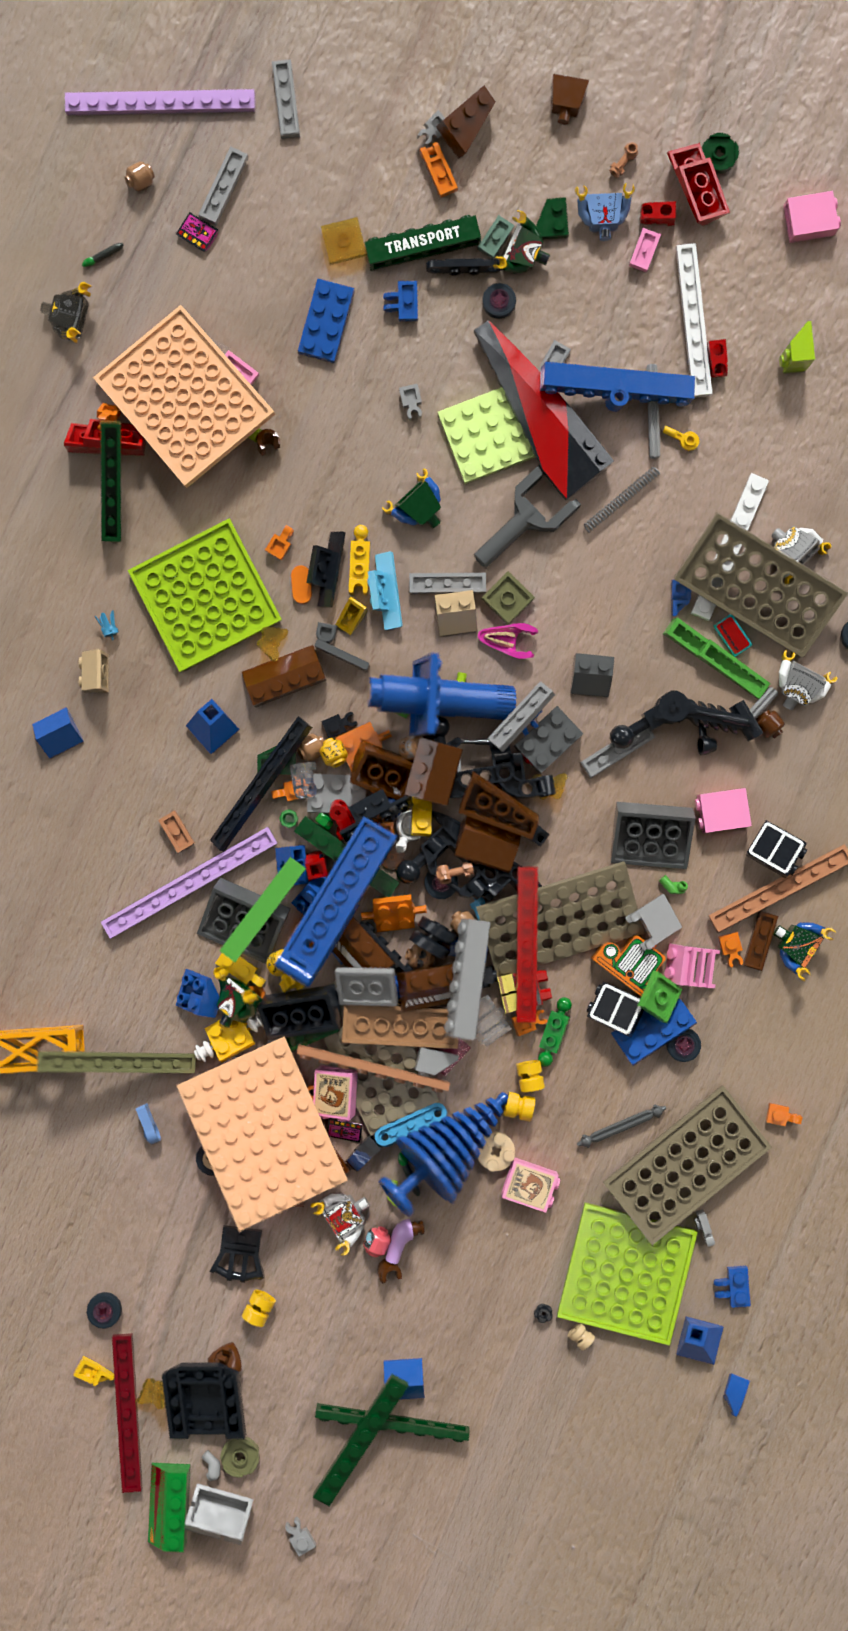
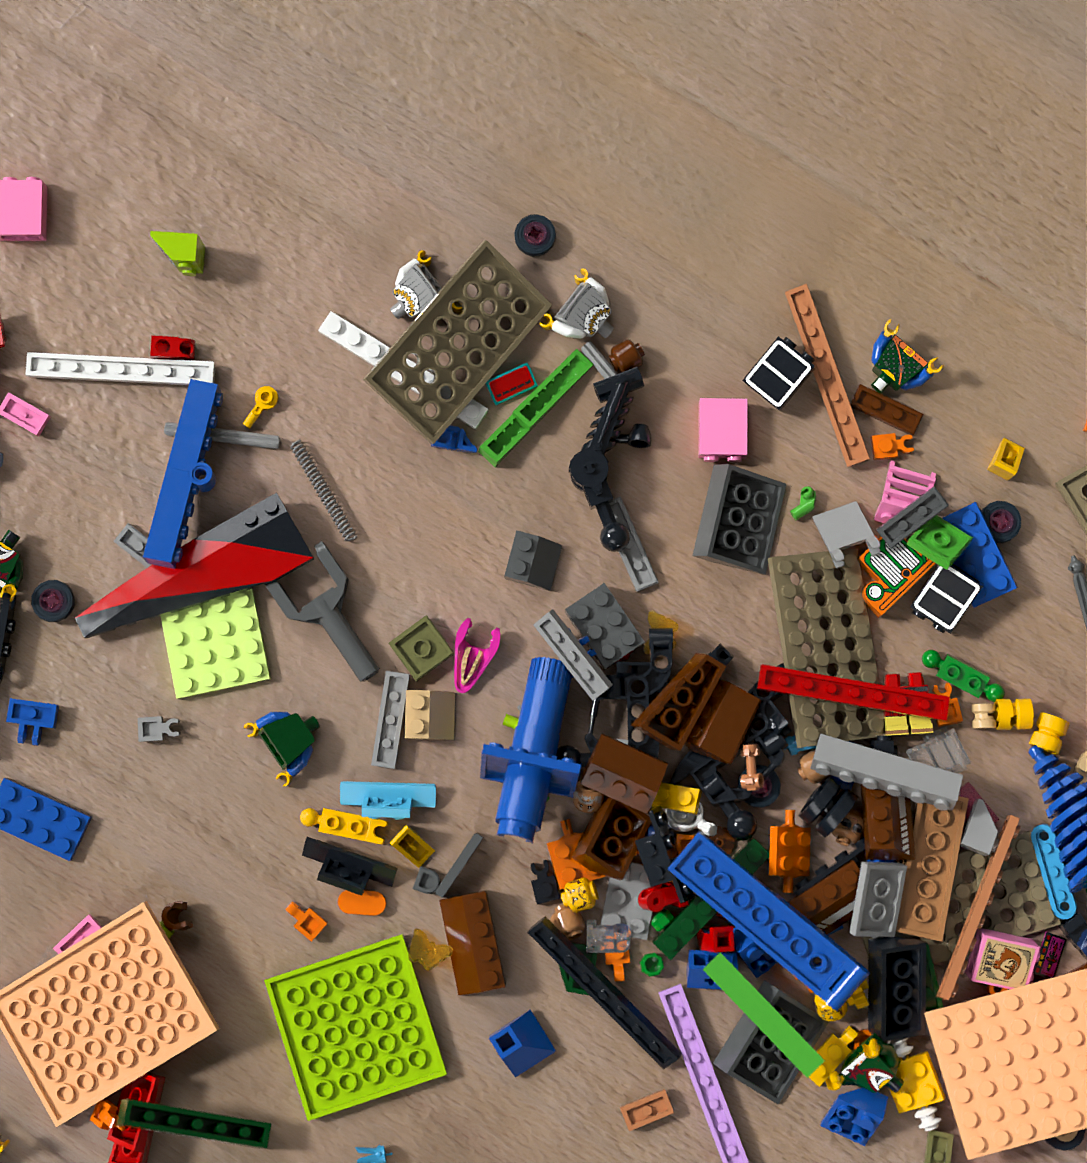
camera: 80 degrees left, 5 degrees down
(525, 1052) = (983, 716): none -> tan wheel
(676, 972) = (912, 517): none -> dark grey tile
(735, 1043) = (1006, 459): none -> yellow slope

